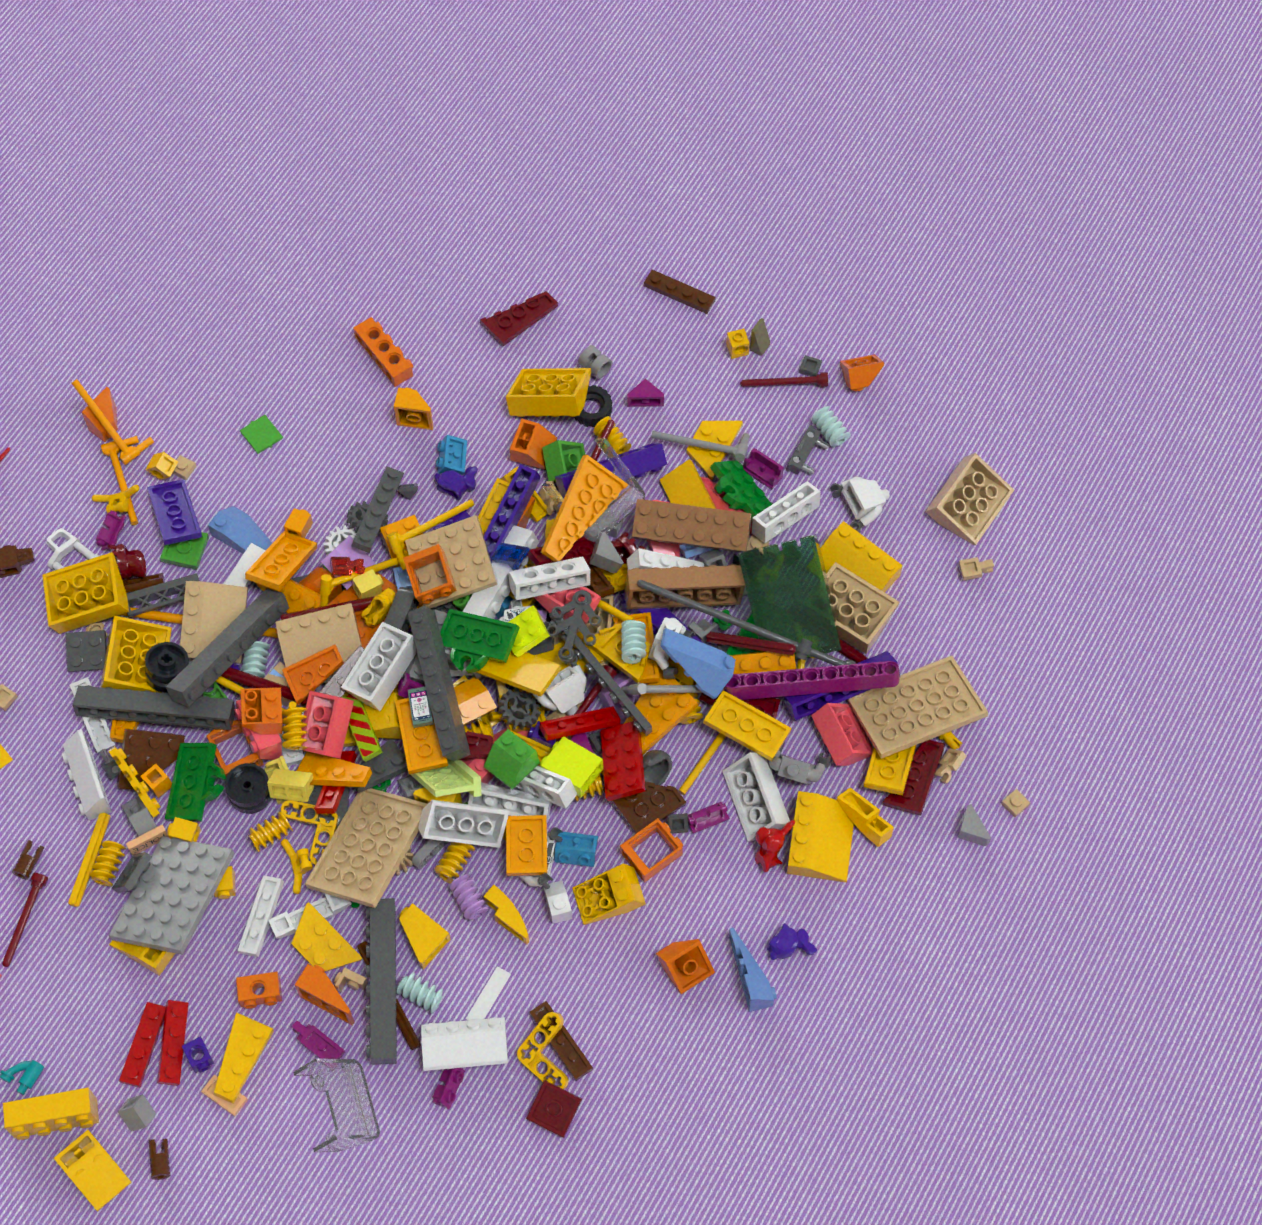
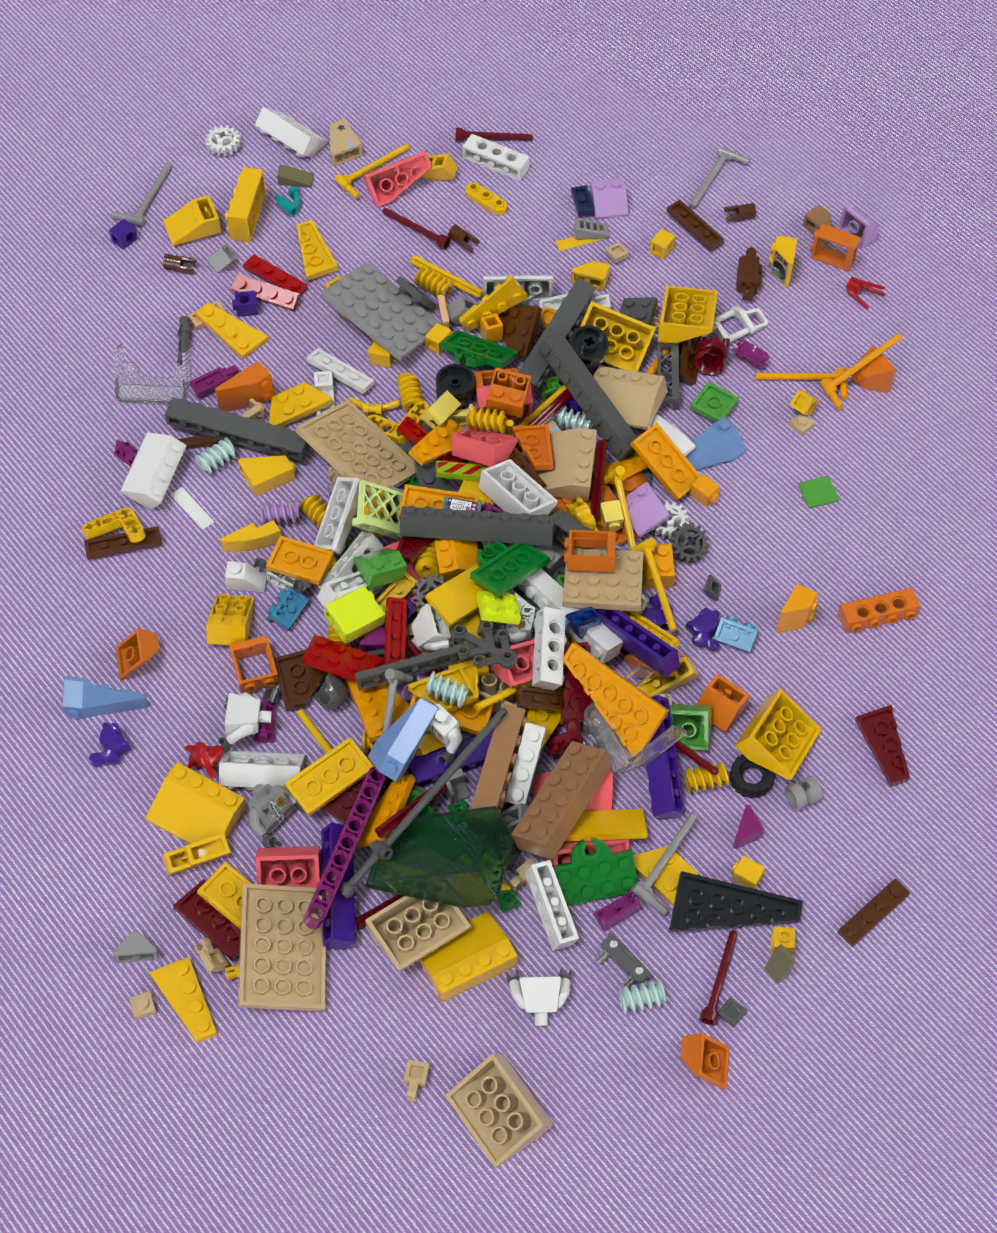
camera: 110 degrees right, 5 degrees down
(45, 709) = (593, 273): none -> yellow slope
(95, 1013) = (314, 251): none -> yellow wing
(122, 497) = (781, 367): yellow piece -> none
(174, 512) = (751, 399): dark purple plate -> none
(249, 984) = (277, 353): orange brick -> none
(271, 1102) = (184, 335): none -> dark grey pin
(344, 566) = (632, 493): clear red plate -> none
(377, 509) = (692, 548): dark grey plate -> none
(554, 1108) = (69, 519): dark red tile -> none
(605, 555) = (562, 711): light grey slope -> none
(687, 384) = (747, 872): none -> yellow brick
(717, 826) = (242, 718): none -> white torso
(725, 394) = (717, 904): none -> black wing
(991, 772) = (185, 996): none -> yellow wing

